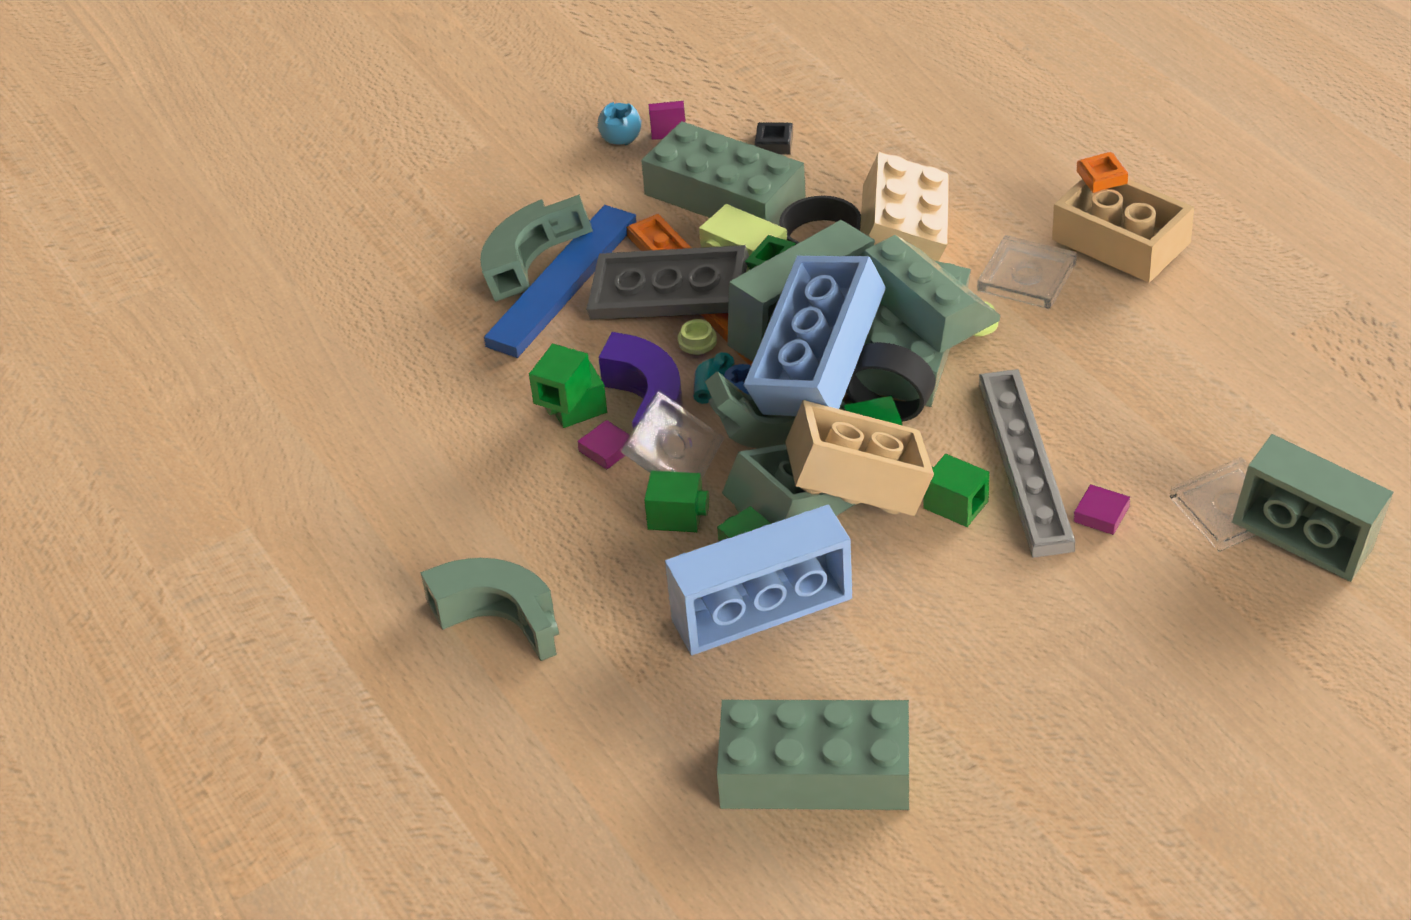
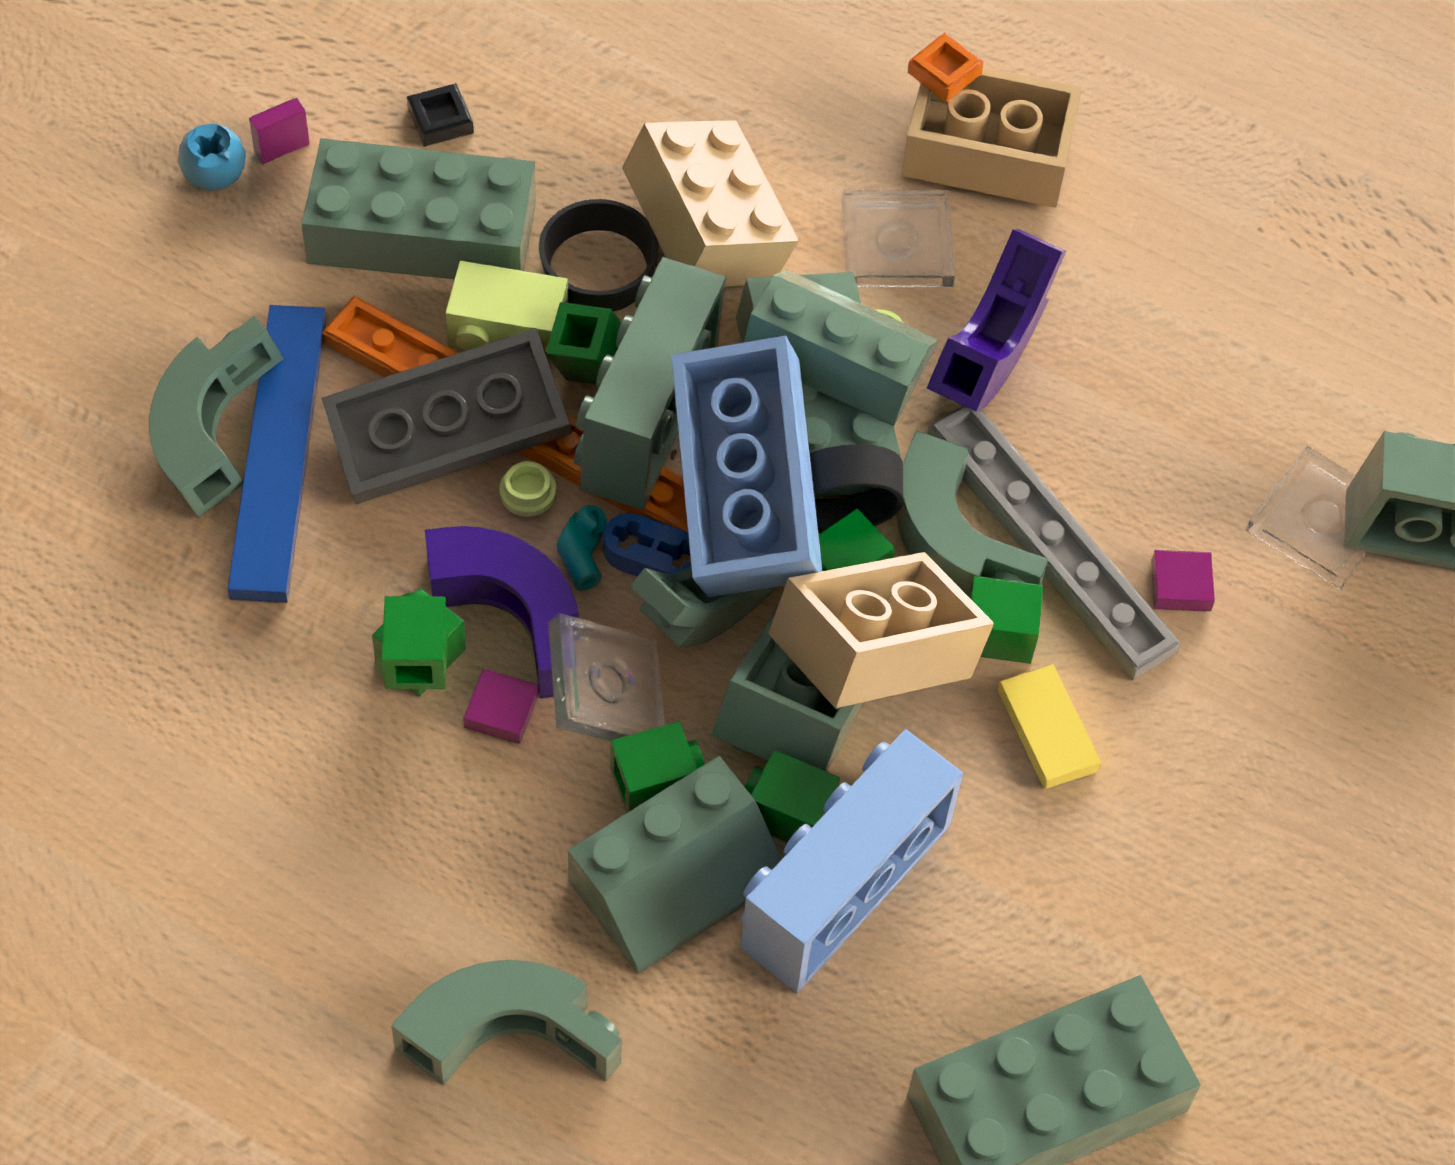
camera: 35 degrees left, 15 degrees up
(633, 543) = (673, 863): none -> sand green slope
(949, 411) = (935, 526): none -> sand green arch
(953, 562) = (1049, 726): none -> light yellow tile
(1060, 334) = (990, 344): none -> dark purple arch

